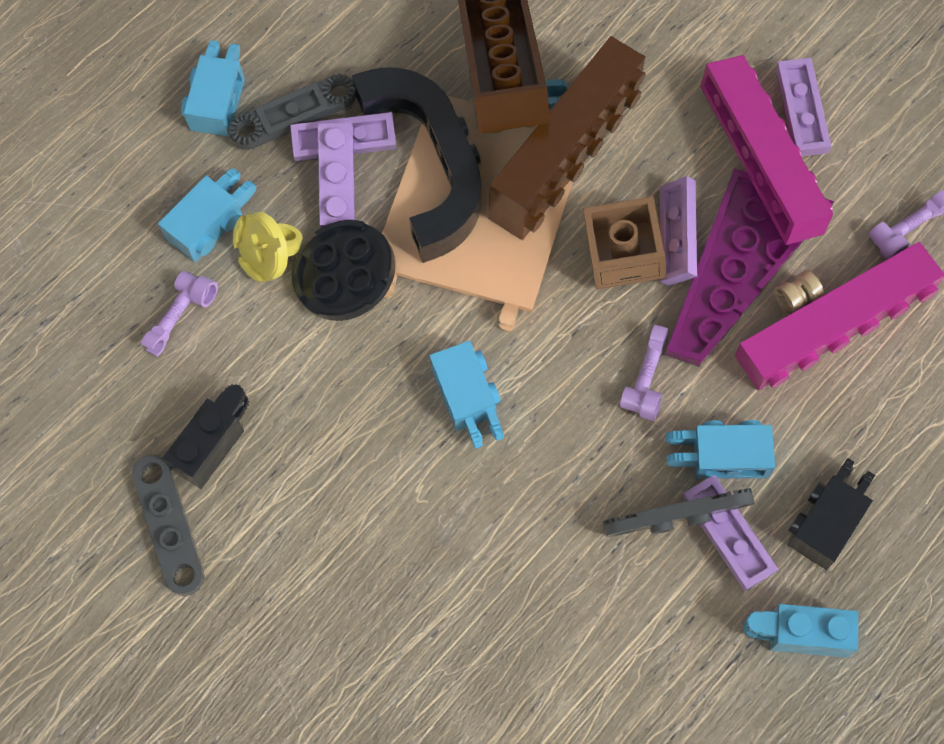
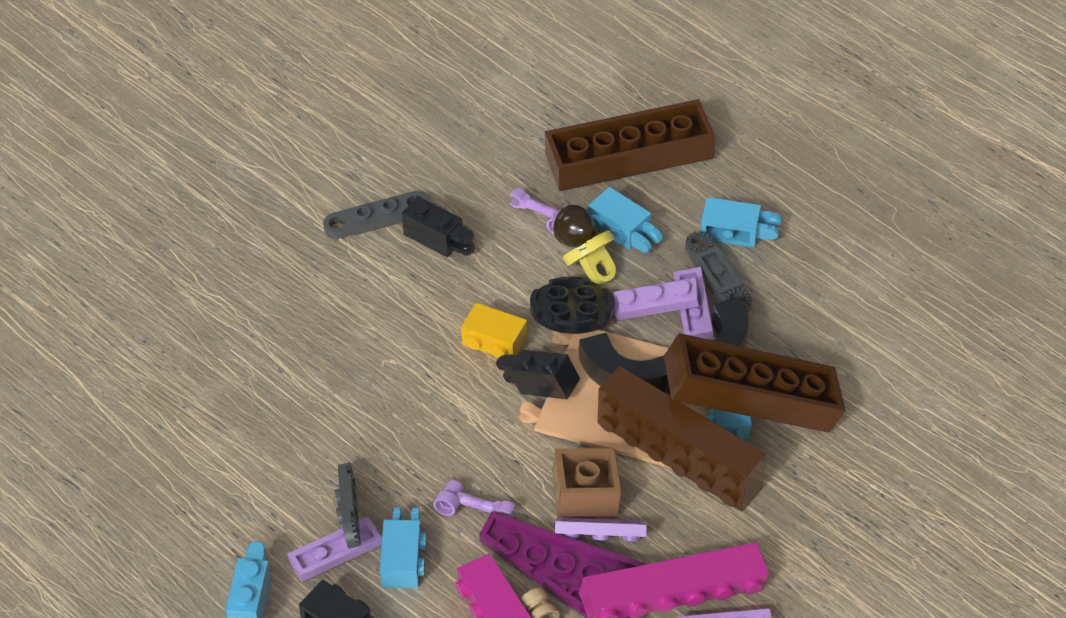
camera: 90 degrees right, 20 degrees down
(80, 206) = (629, 144): none -> reddish brown brick
(221, 261) = (574, 226): none -> dark brown helmet
(386, 359) = (493, 331): none -> yellow brick
(462, 299) = (540, 373): none -> black hinge
(466, 390) = (463, 382): medium azure hinge -> none

